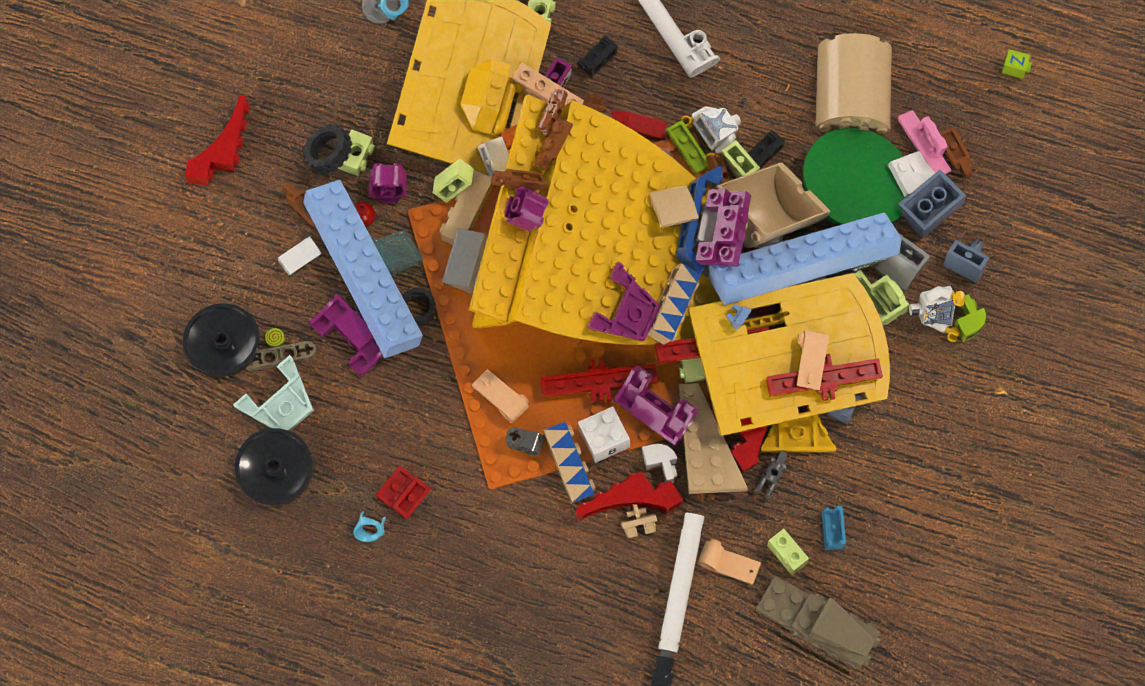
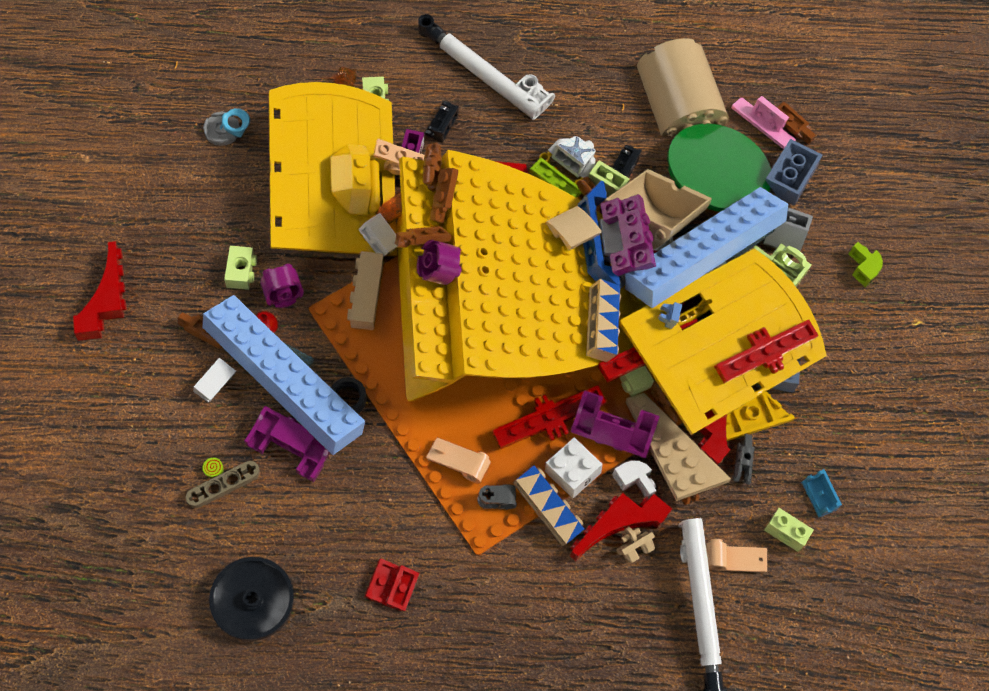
camera: 25 degrees left, 5 degrees down
(221, 340) = (159, 485): black dish -> none
(286, 406) = (244, 535): light aqua wing -> none
(338, 156) = (222, 278): black tyre -> none
(362, 535) = (368, 642): medium azure piece -> none
(398, 251) = (313, 348): clear light blue tile -> none
(453, 180) = (345, 266): yellowish green brick -> none
(465, 260) = (388, 338): light grey slope -> none
(634, 313) = (572, 336): magenta wing -> none
(812, 359) = (752, 336): light nougat door -> none
(820, 623) = (846, 590): dark tan wedge -> none
(910, 172) = (763, 150): white plate -> none
(937, 309) = (837, 260): torso -> none
(967, 260) = (843, 213): sand blue brick -> none
(1016, 64) = (815, 35): lime brick -> none

